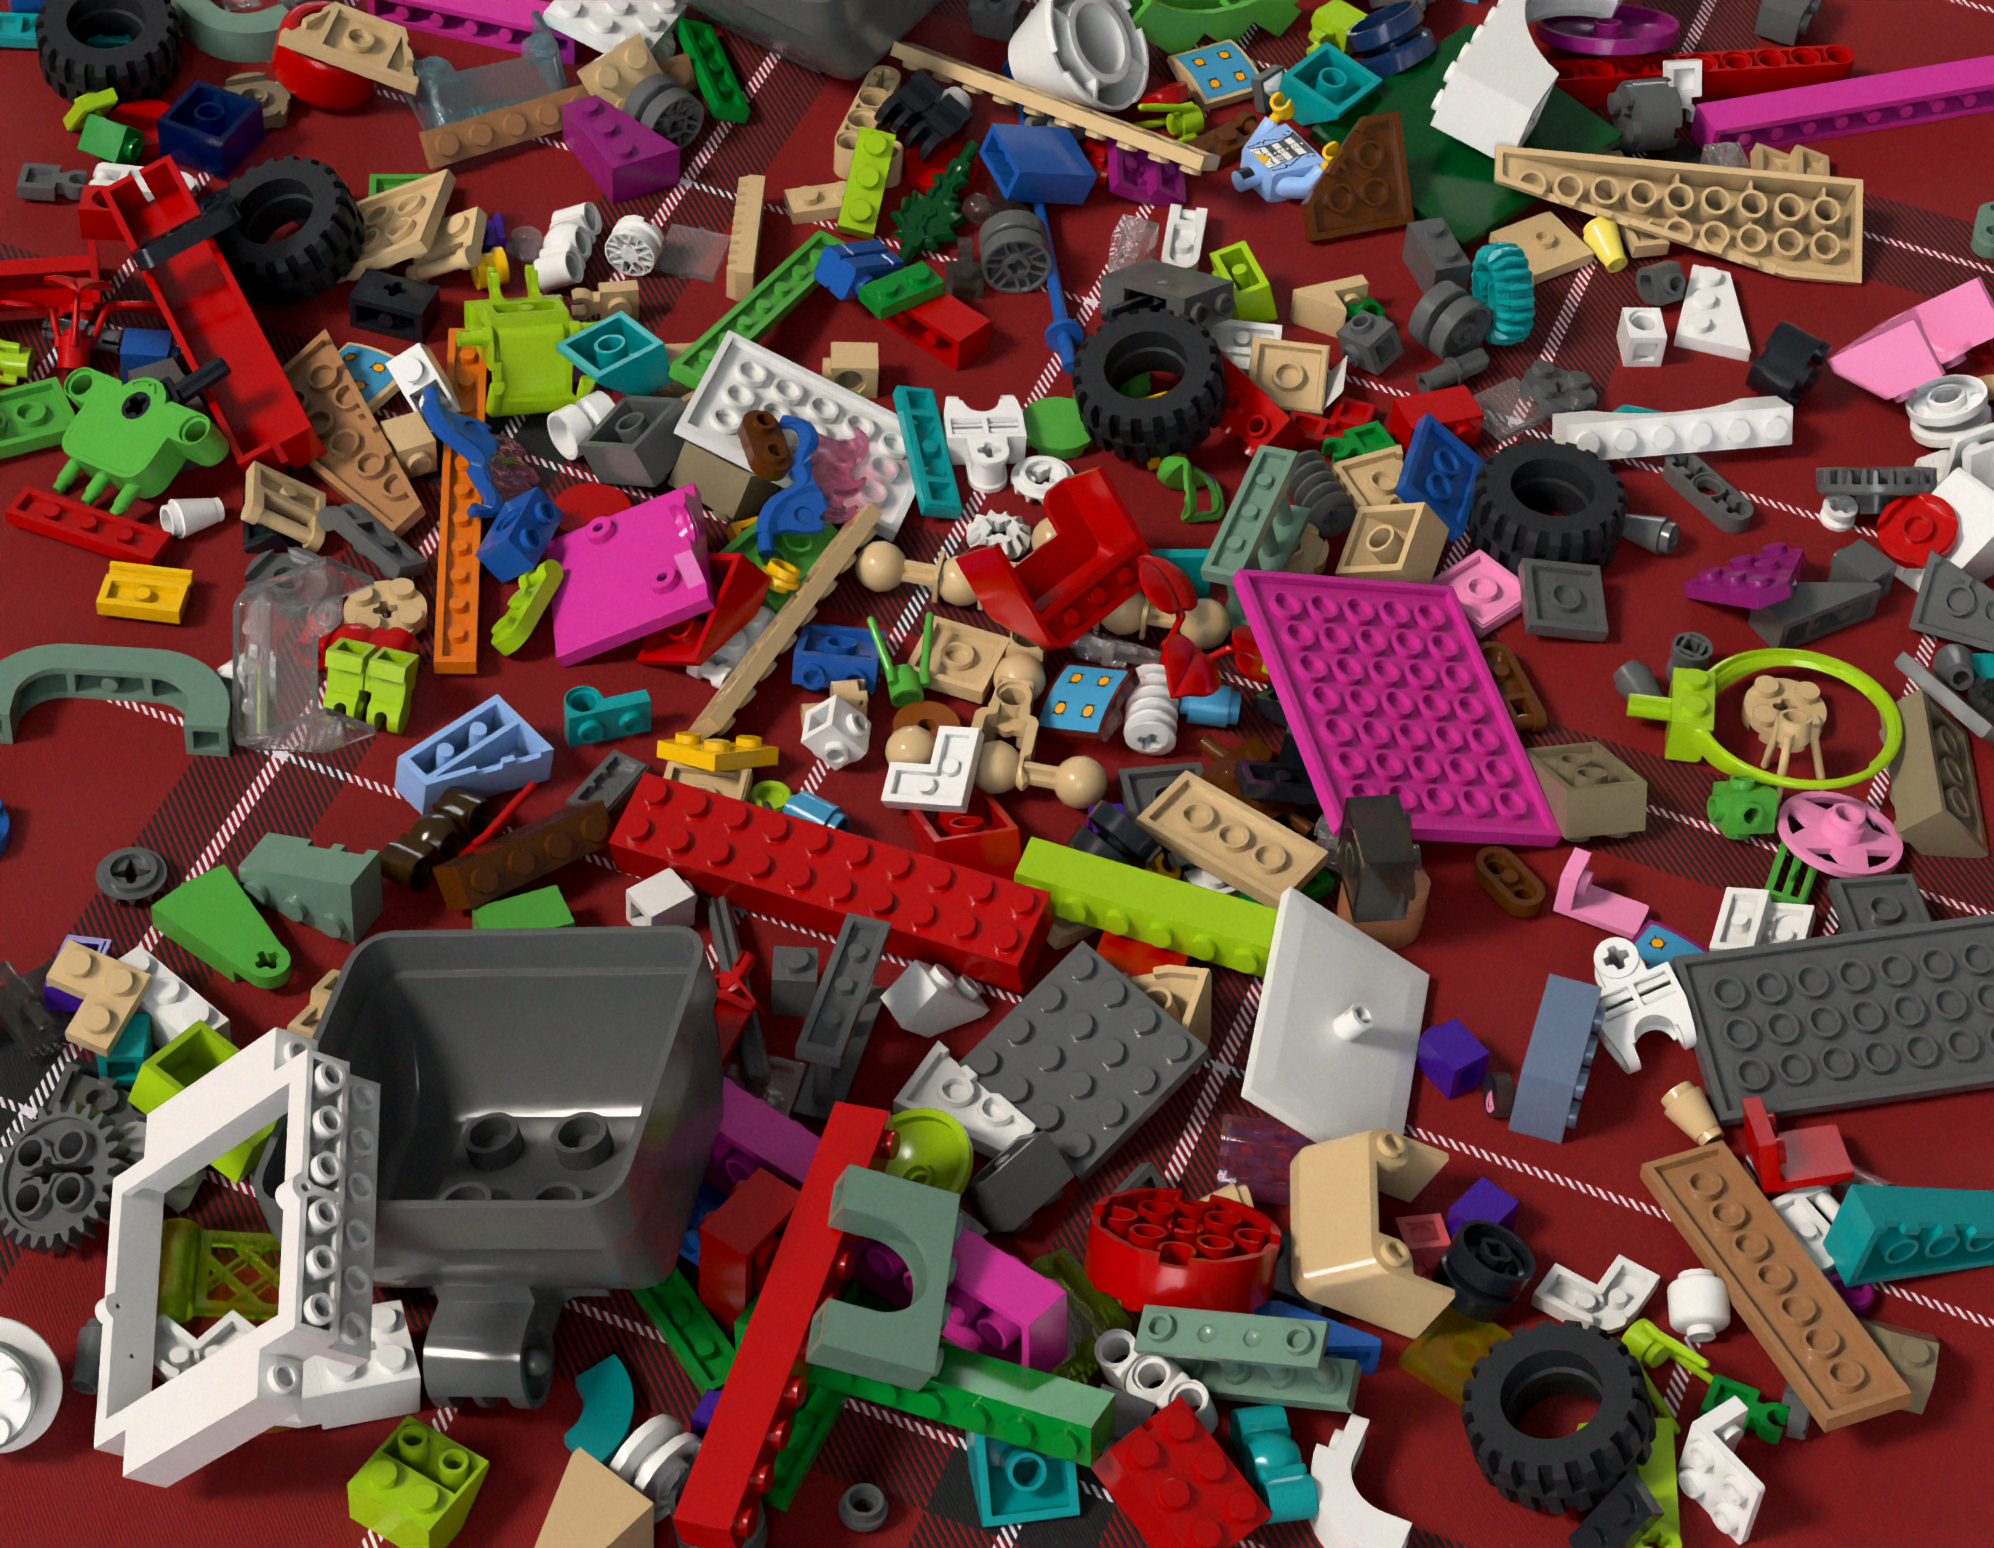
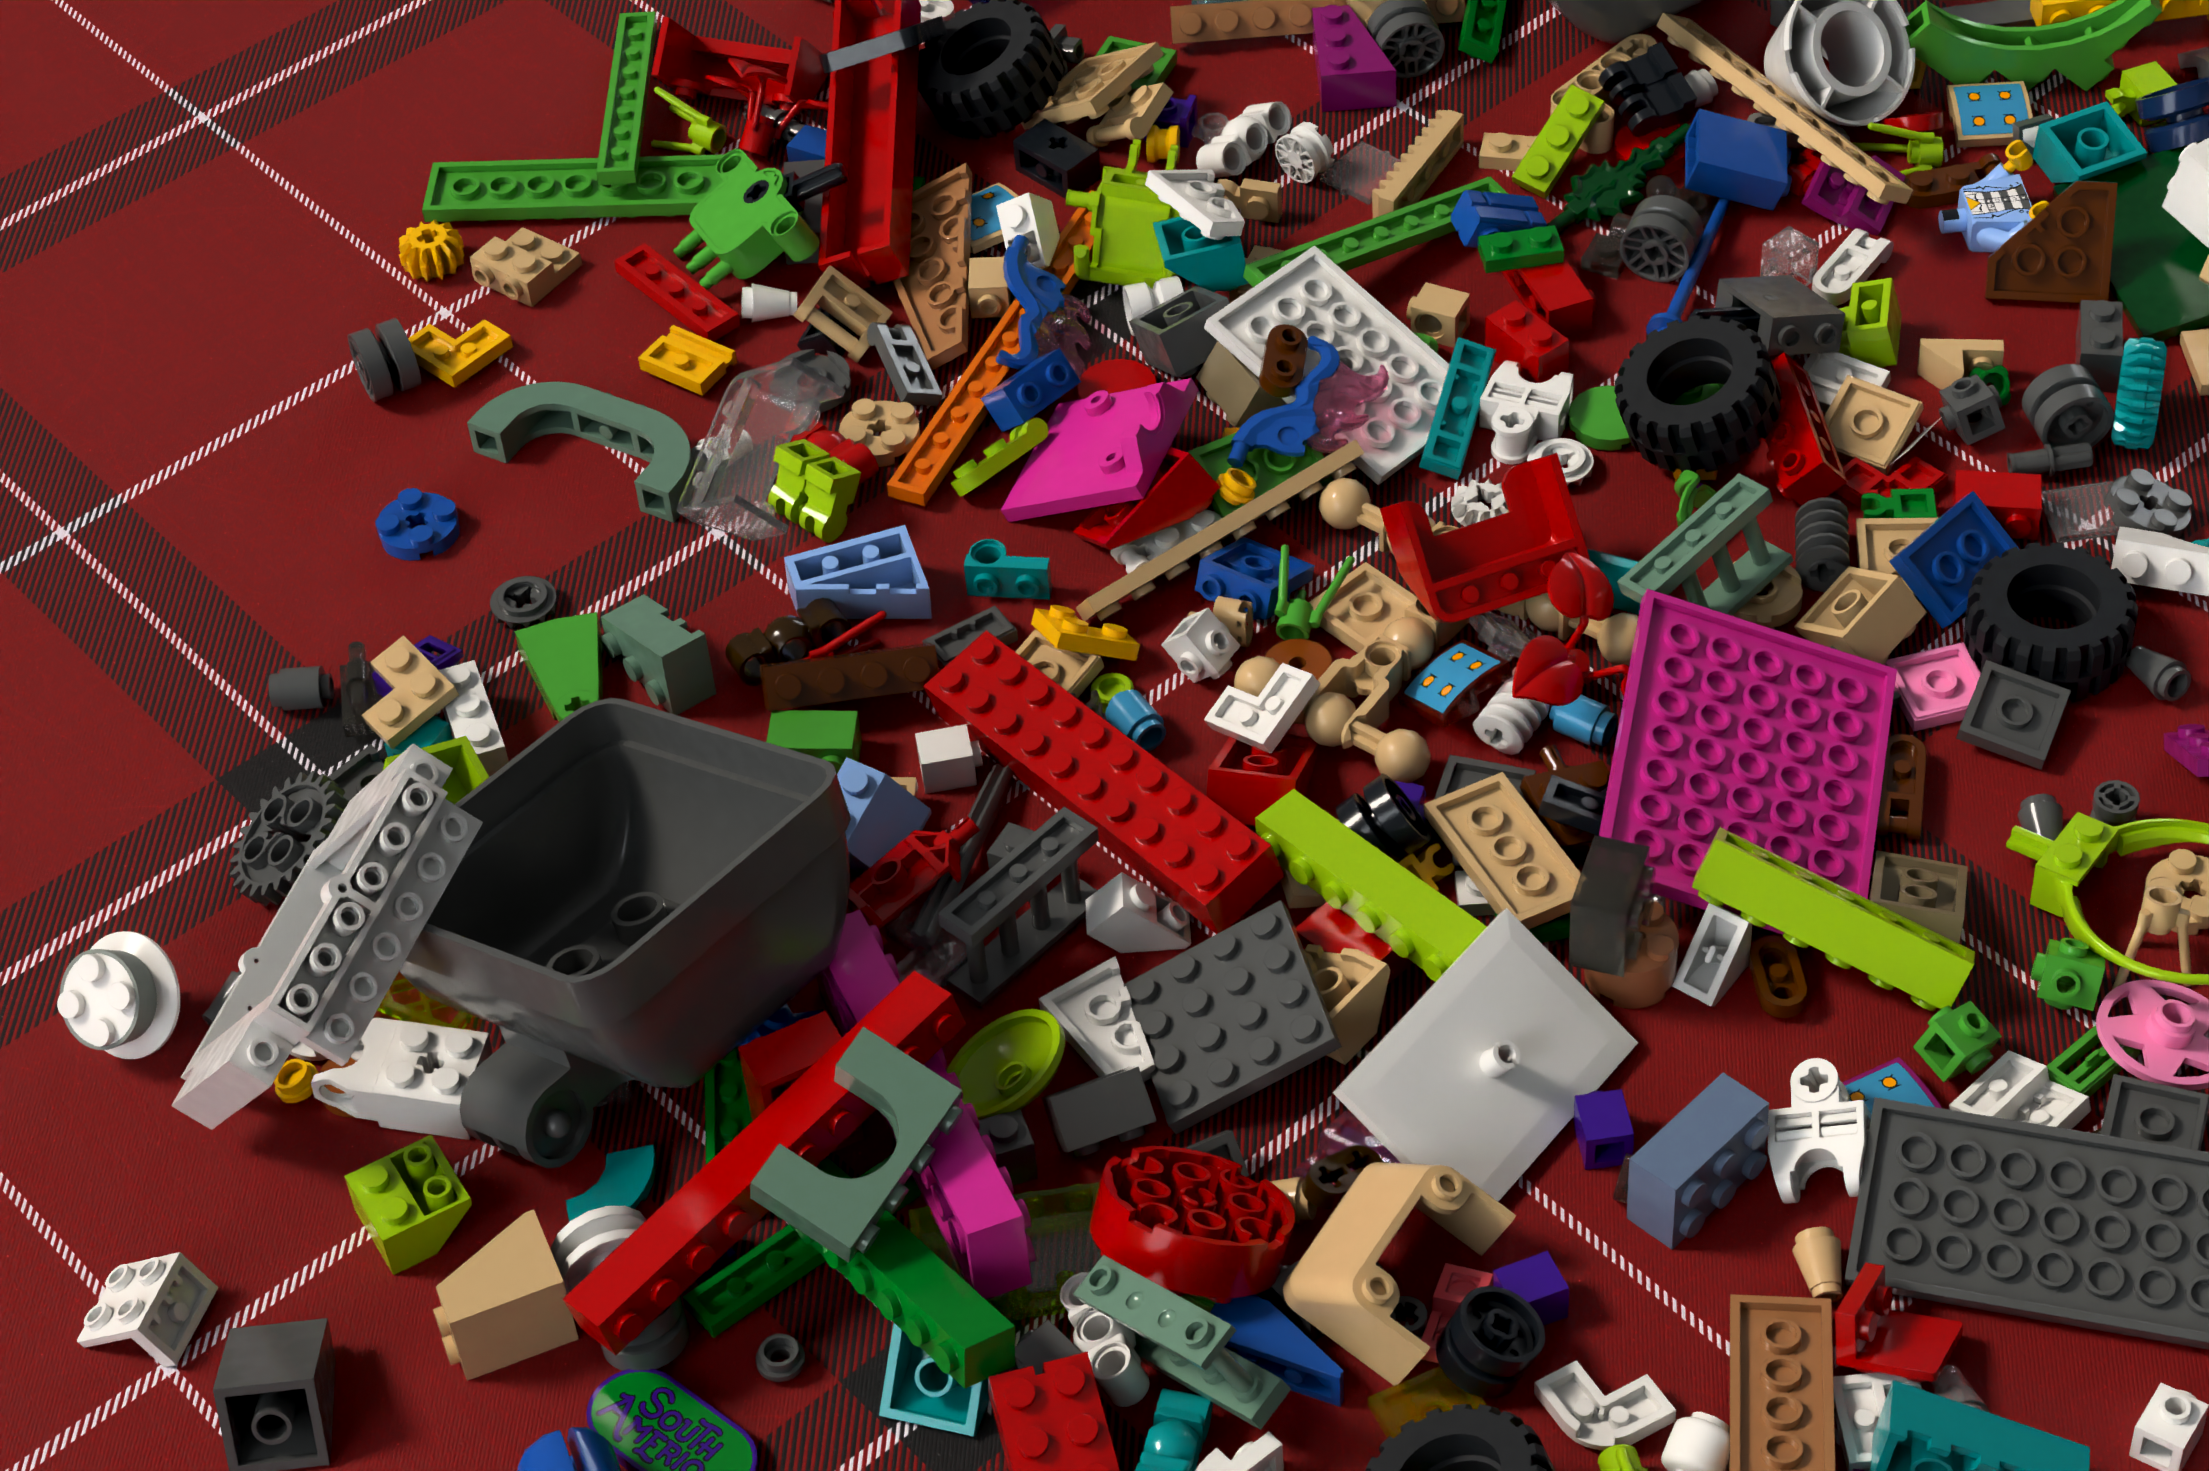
camera: 35 degrees right, 0 degrees up
(599, 313) = (1197, 200): none -> white wing
(953, 374) = (1529, 340): none -> red brick
(1268, 1171) = (1336, 1169): none -> dark brown beam
(1452, 877) = (1715, 955): none -> white slope
(1546, 817) = (1833, 920): none -> lime brick
(1593, 904) = (1849, 1022): bright pink bracket -> none
(1691, 890) = (1957, 1041): none -> bright green brick

